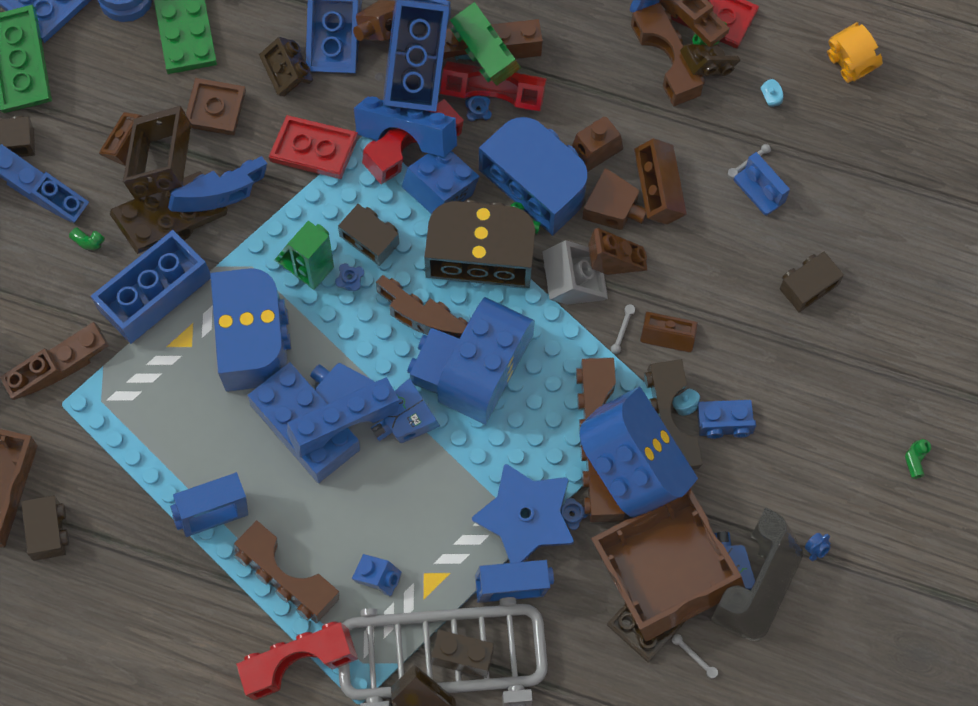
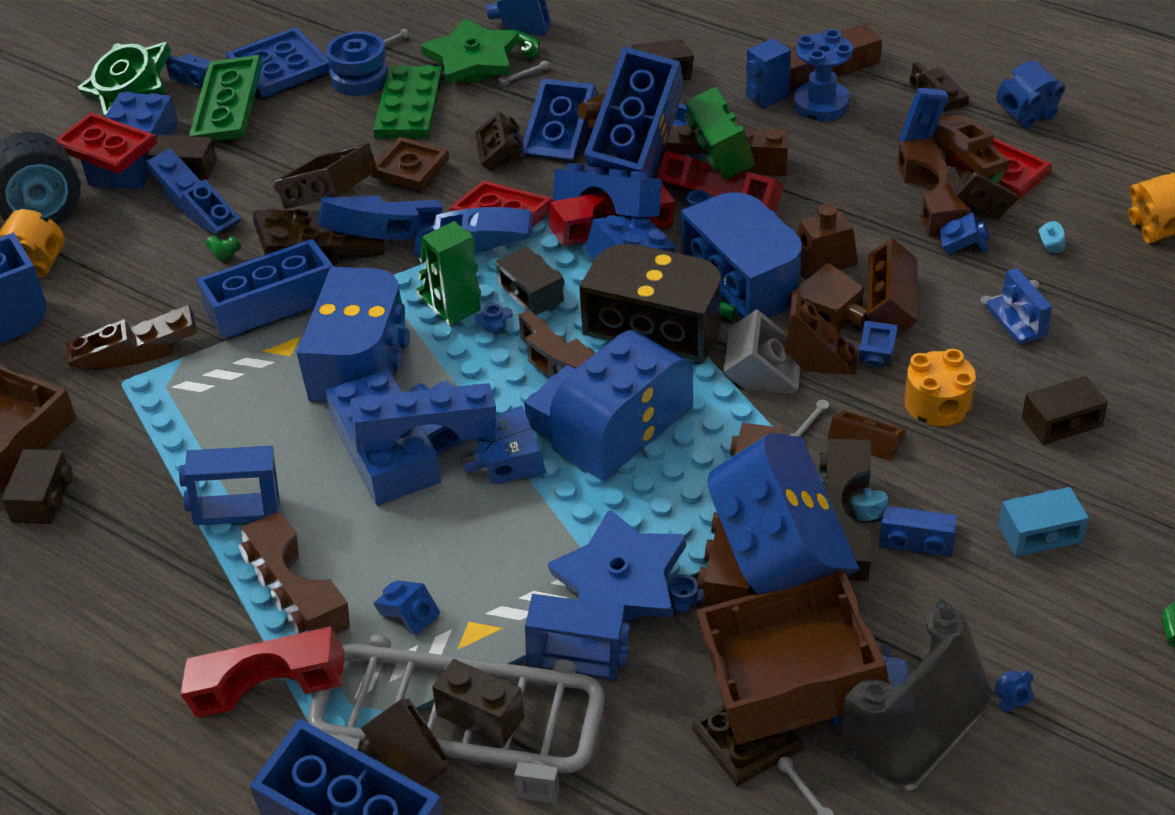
camera: 20 degrees right, 25 degrees down
(303, 187) = (488, 225): none -> blue slope
(660, 242) = (877, 344): none -> blue bracket
(703, 105) = (964, 232): none -> blue bracket
(716, 280) = (939, 387): none -> light orange brick
(813, 393) = (1043, 521): none -> dark azure brick

